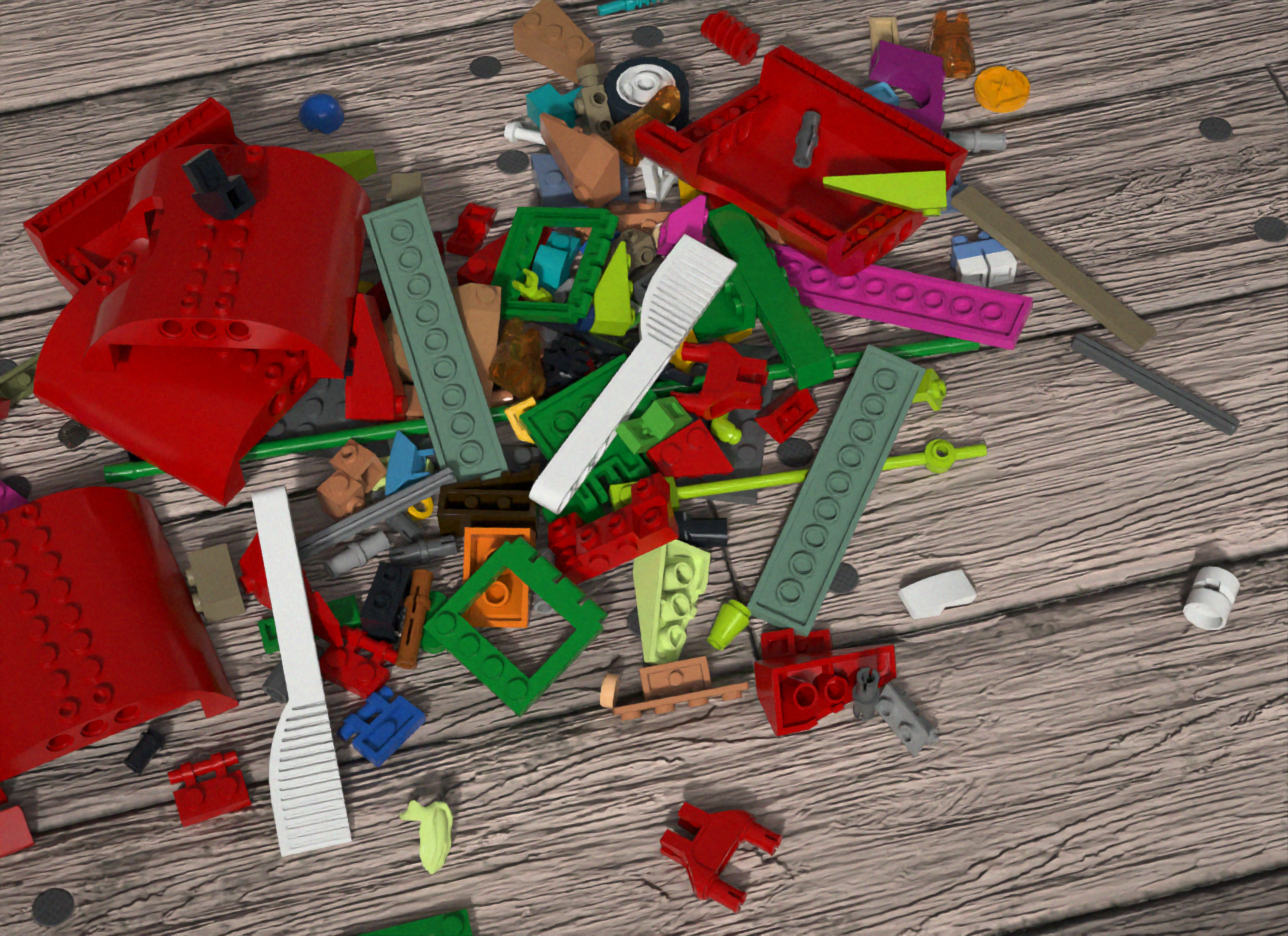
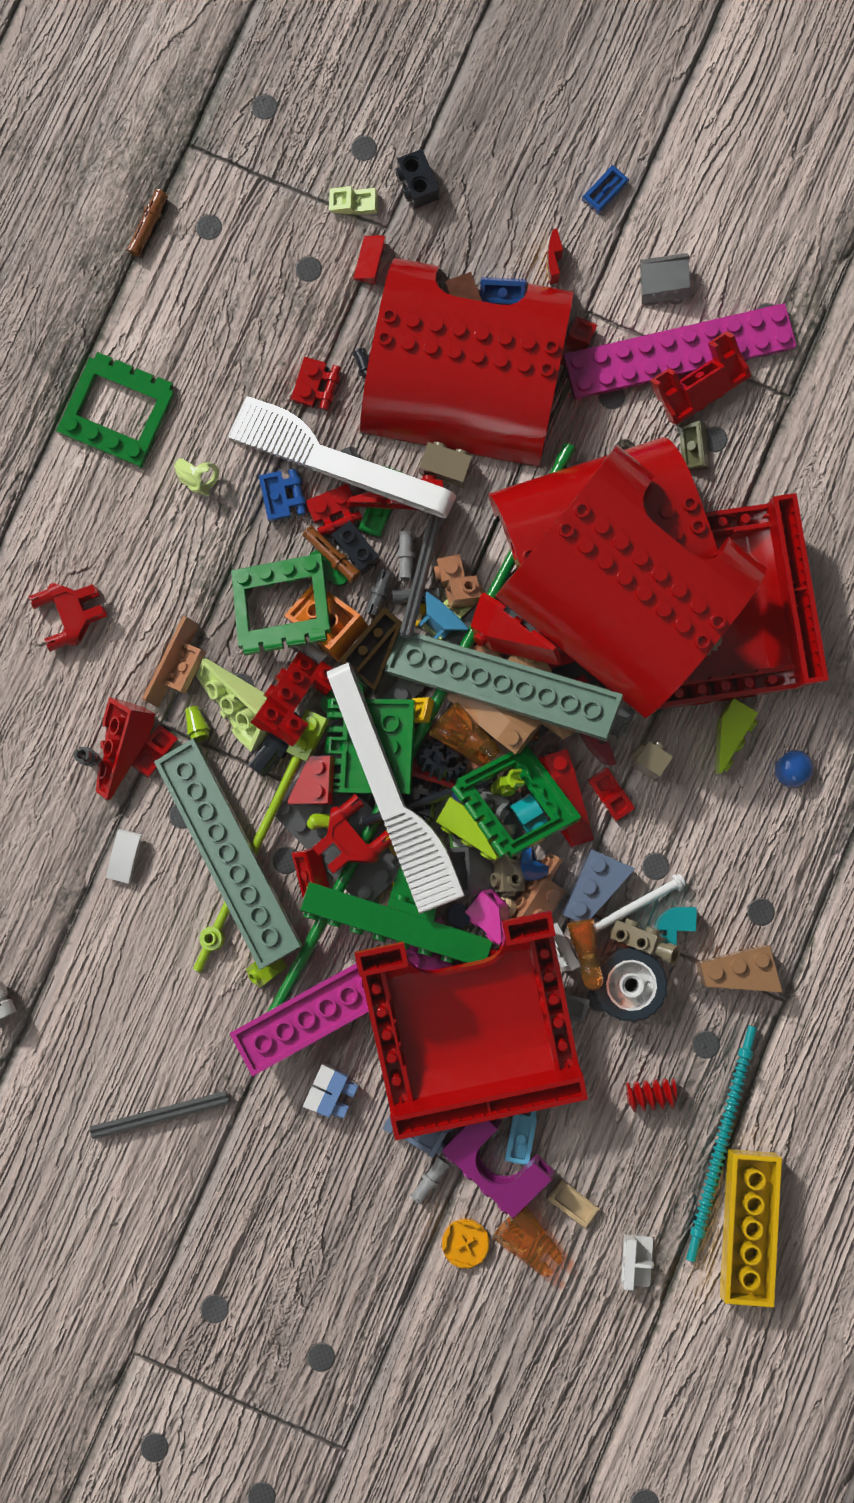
camera: 130 degrees right, 30 degrees up
(215, 192) = (664, 583): black brick -> none
(585, 161) = (575, 881): nougat wedge -> none
(609, 690) = (205, 628): light nougat tile -> none
(657, 424) = (344, 771): bright green slope -> none
(806, 139) = (497, 1050): dark grey pin -> none
(900, 713) = (53, 771): light grey hinge -> none
(909, 191) = (389, 1069): lime wedge -> none
(1053, 268) = (284, 1126): dark tan tile -> none

